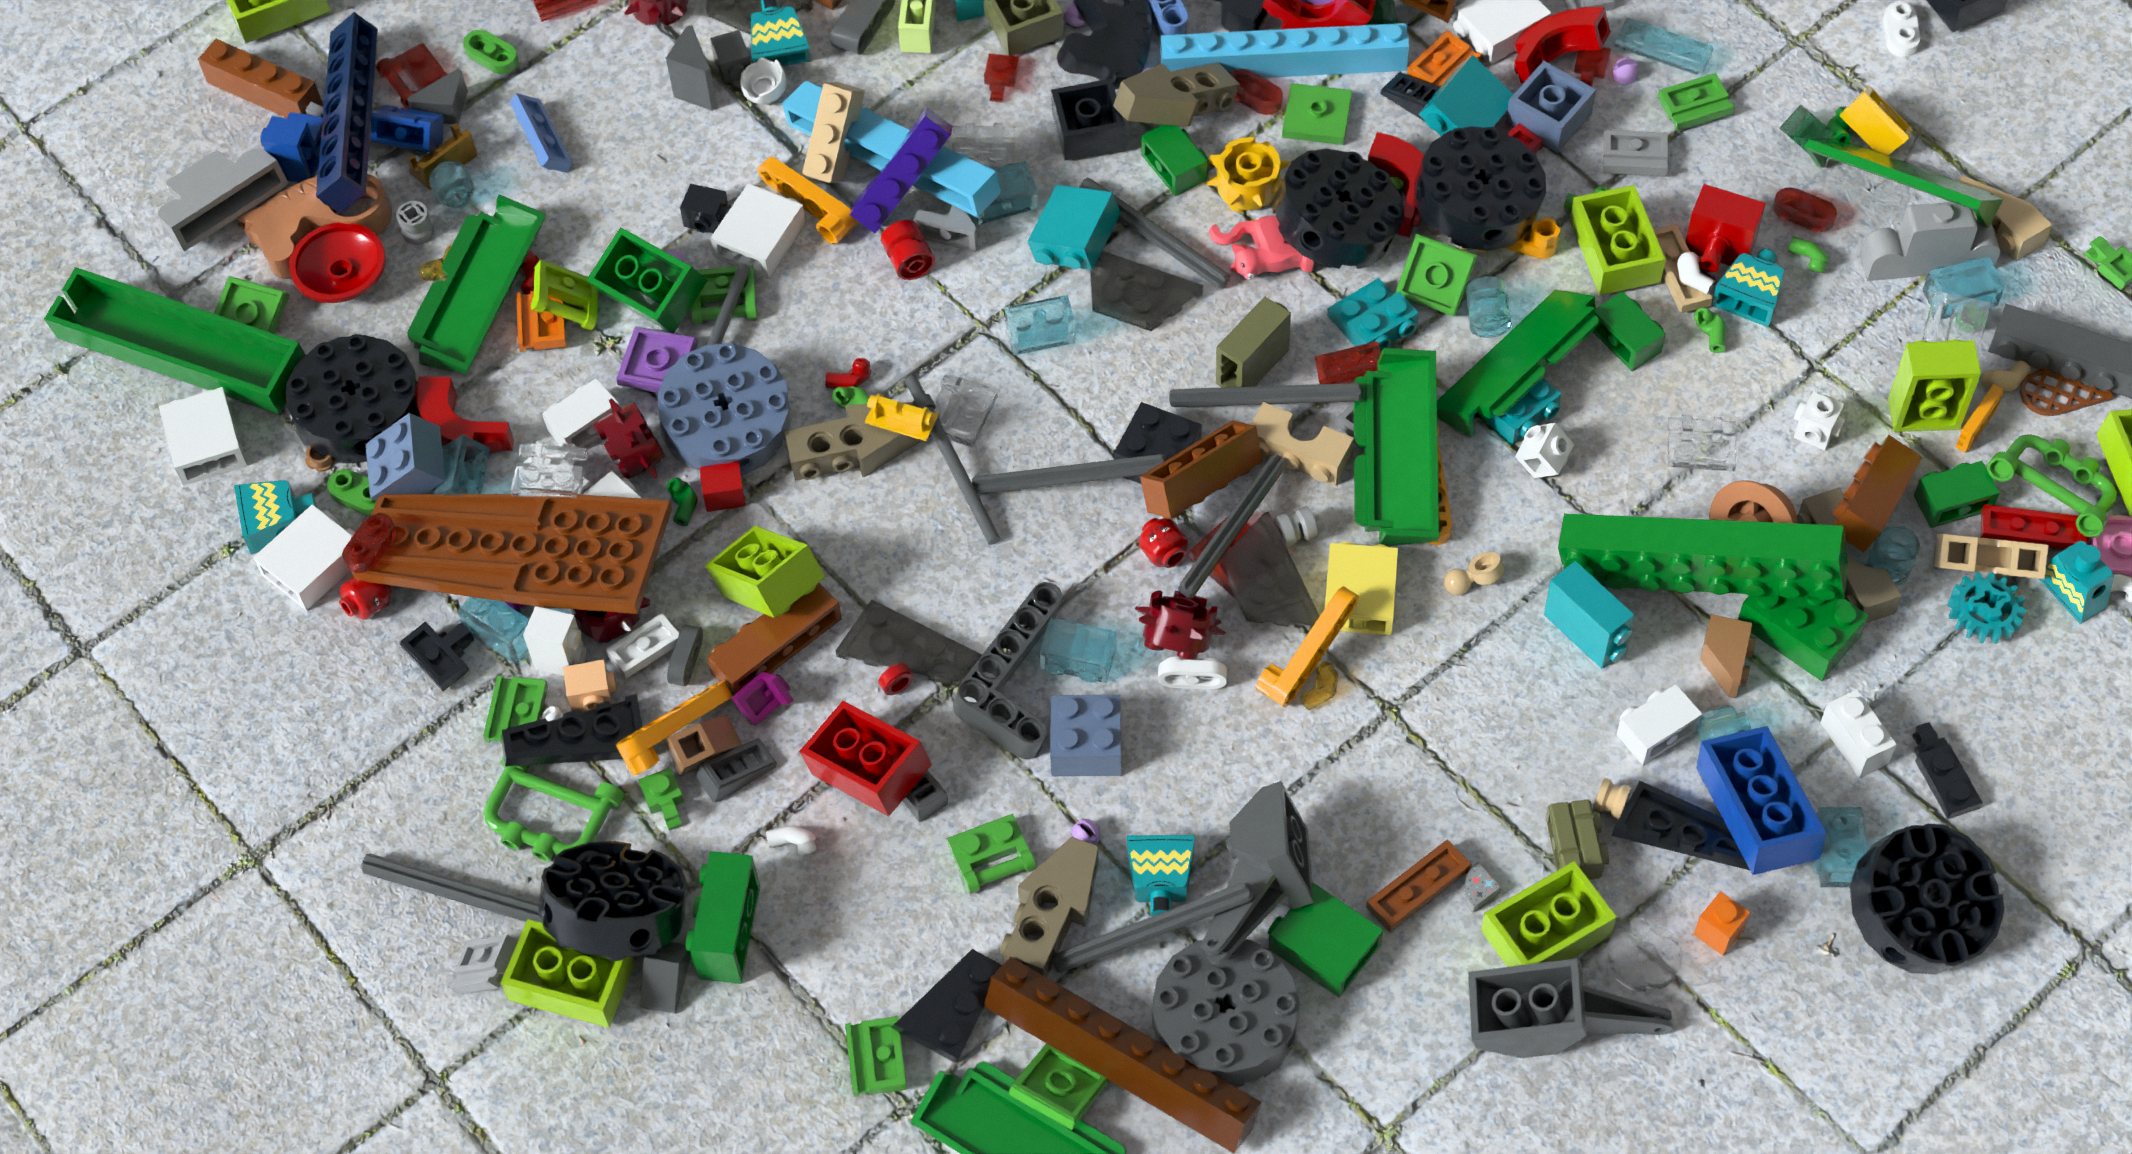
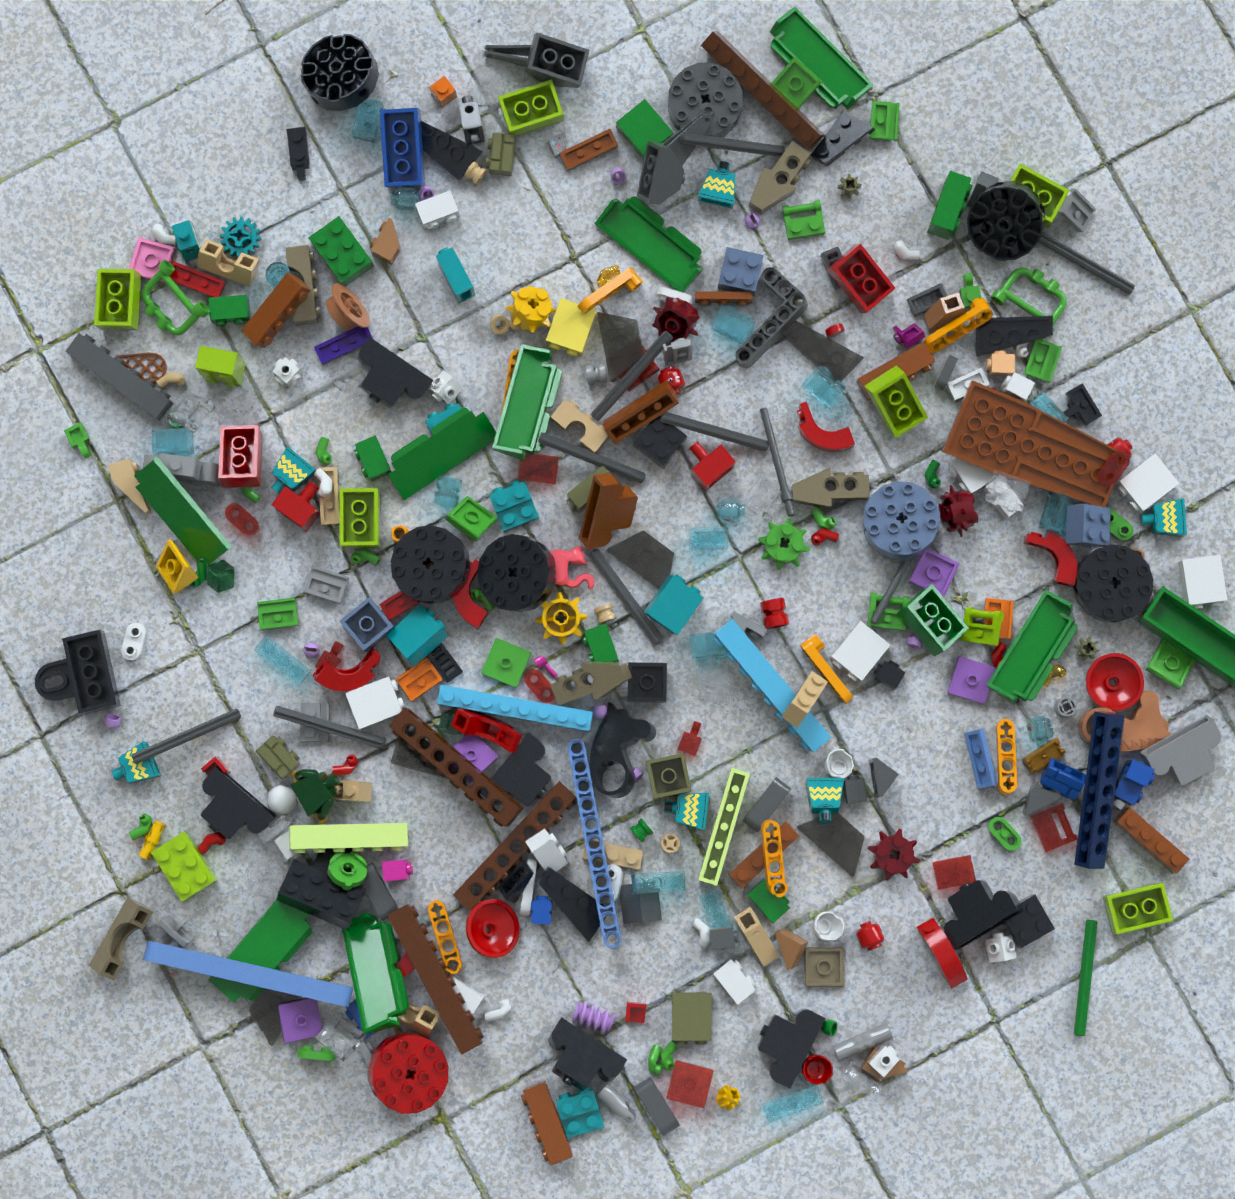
camera: 170 degrees left, 25 degrees up
(389, 305) = (1091, 645): none -> olive gear
(488, 99) = (1006, 756): none -> light orange beam
(572, 234) = (970, 680): none -> medium lavender plate
(574, 417) = (982, 542): white brick -> none
(722, 486) = (910, 473): red panel -> none
(882, 509) = (824, 440): none -> red arch
(894, 582) = (825, 387): none -> clear light blue brick
(900, 417) = (801, 486): yellow hinge -> none
(902, 170) = (754, 659): dark purple arch -> none
(913, 344) = (773, 540): none -> bright green brick
(920, 931) = (849, 180): none -> olive gear
(1013, 376) = (730, 511): none -> clear light blue head
(1060, 420) = (711, 466): none -> red brick
(1131, 685) = (704, 298): none -> dark orange plate
(1163, 576) = (678, 351): none -> light grey plate
(1180, 199) = (605, 613): none -> tan wheel
(1217, 317) = (607, 509): none -> dark orange brick
(1250, 753) = (645, 237): none -> green slope
(1260, 125) = (541, 661): none -> dark pink hand
(1351, 853) = (622, 175): none -> lavender hinge
(1444, 573) = (530, 308): none -> yellow brick
(1644, 444) = (390, 375): none -> black brick
(1652, 879) = (471, 120): none -> torso
(1688, 748) = (430, 193): none -> lavender hinge
(1708, 555) = (387, 282): green piece -> none
(1761, 467) = (342, 344): none -> dark purple plate
(1844, 276) = (240, 456): none -> red brick
(1858, 733) = (336, 179): white brick -> none
(1980, 418) = (190, 360): light orange tile -> none

